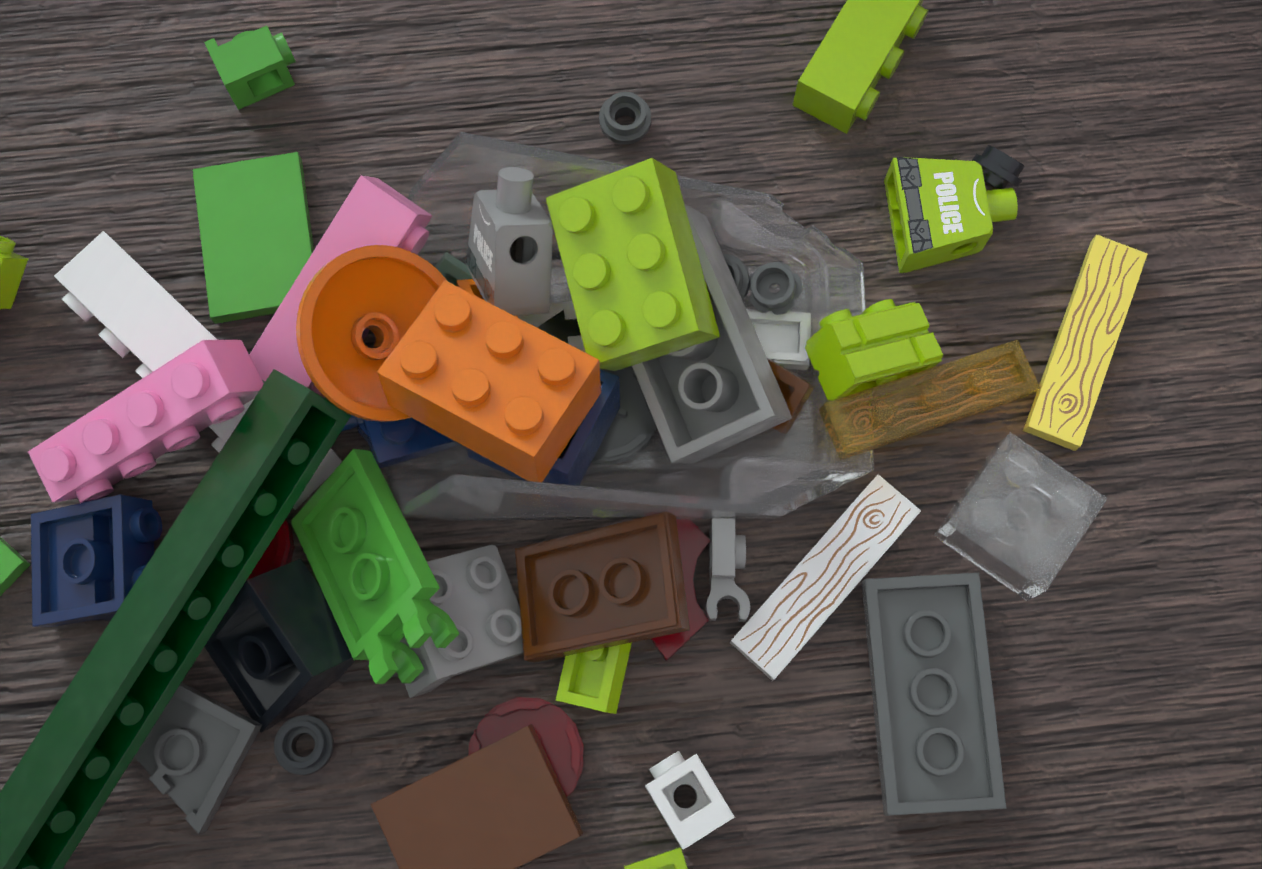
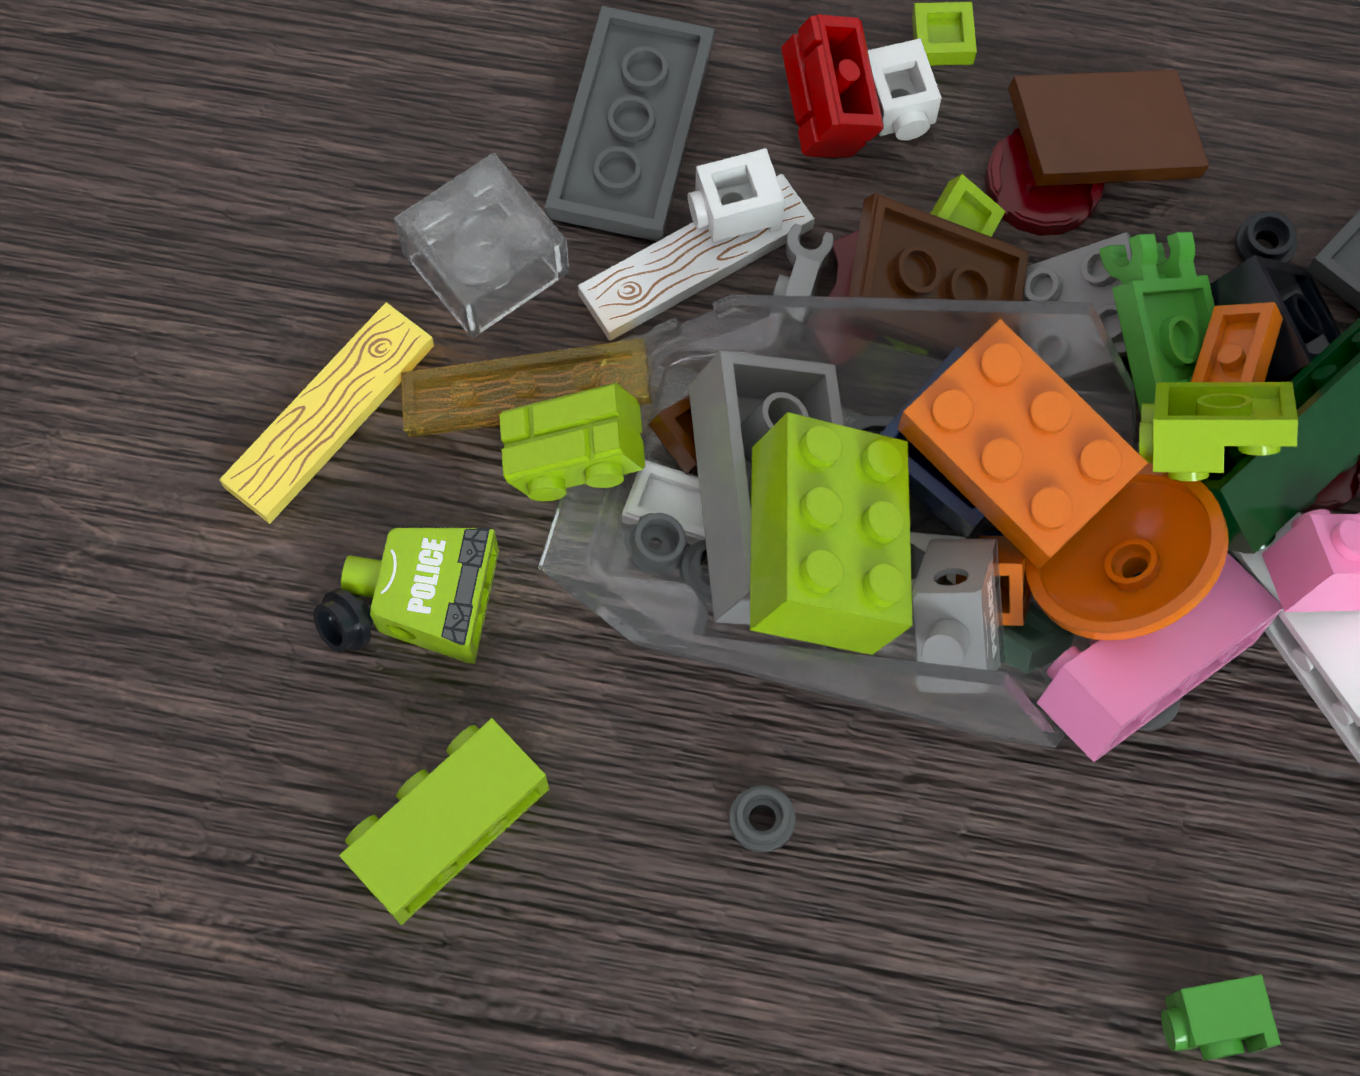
camera: 165 degrees left, 5 degrees down
(252, 233) = (1243, 797): bright green tile -> none
(316, 561) = (1238, 343): none -> orange plate
(321, 445) = (1195, 420): none -> lime plate
(753, 774) = (832, 86): none -> red brick
(825, 600) = (737, 196): none -> white brick

